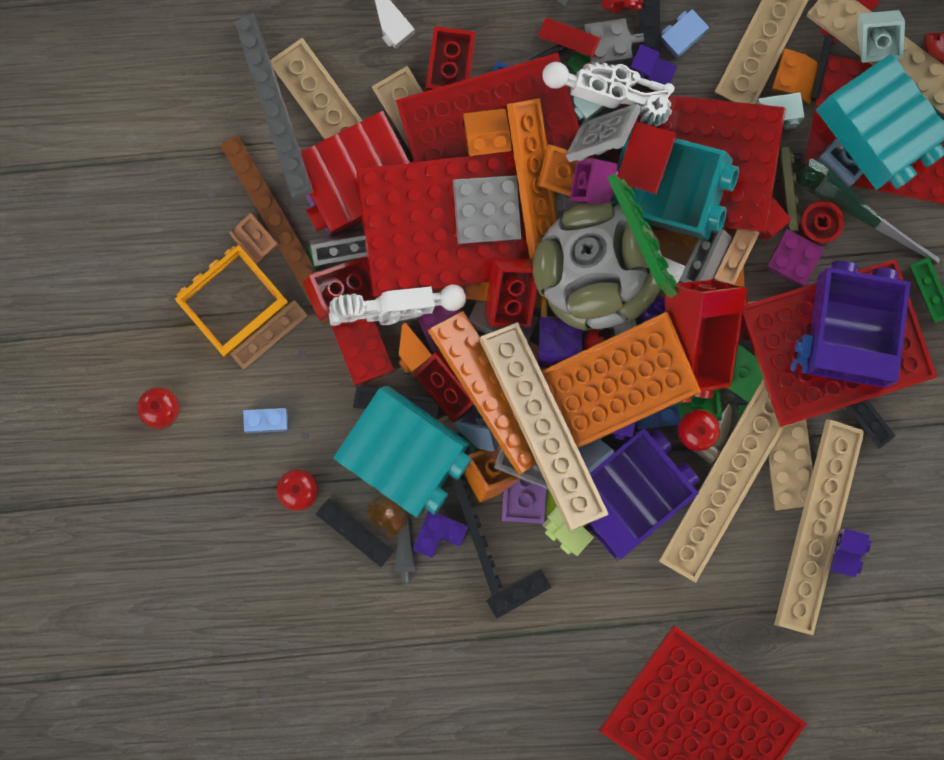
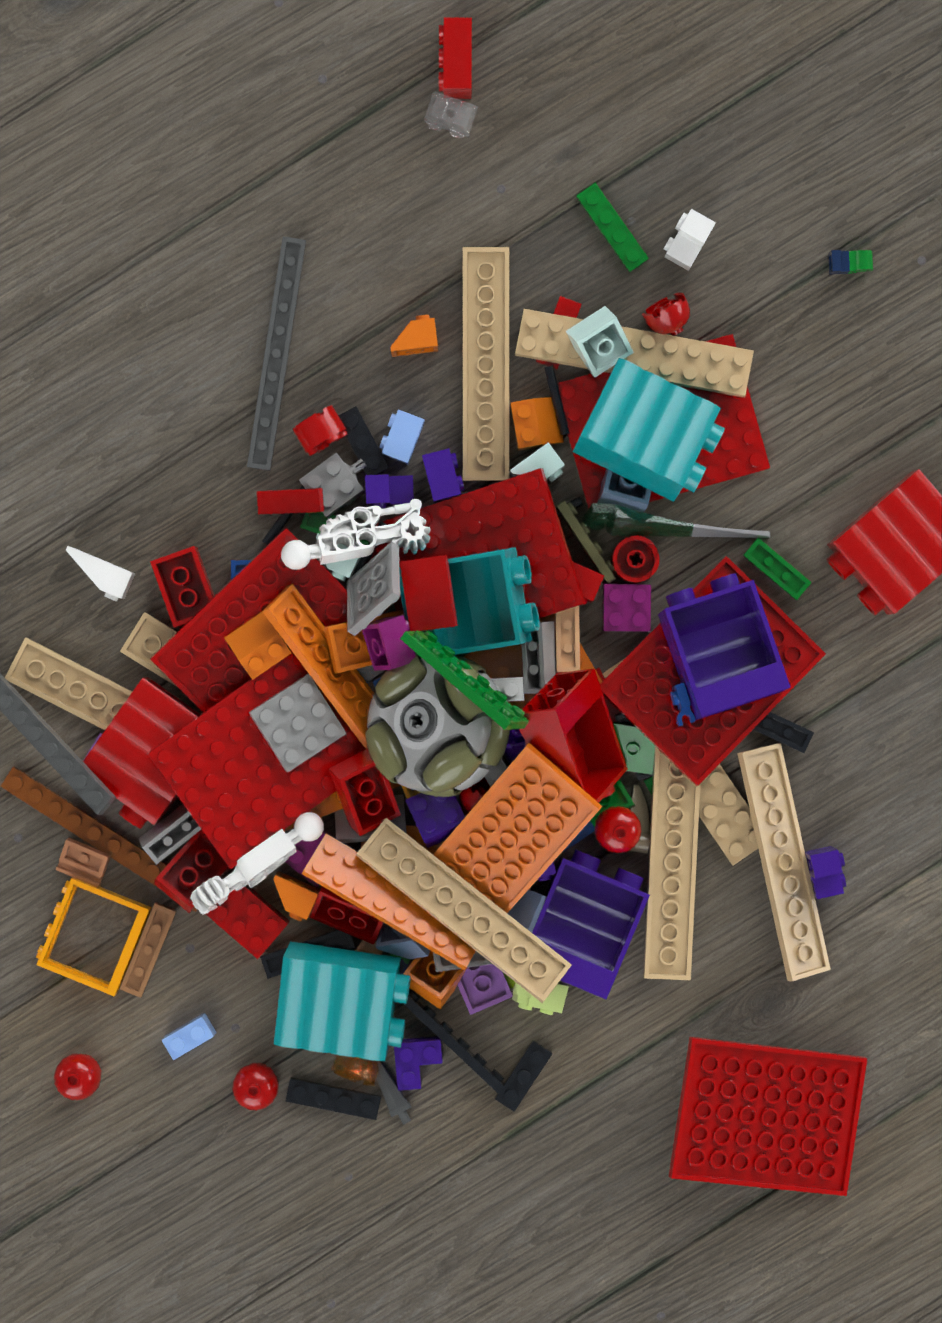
camera: 25 degrees left, 5 degrees up
(701, 75) = (441, 475): none -> dark purple brick

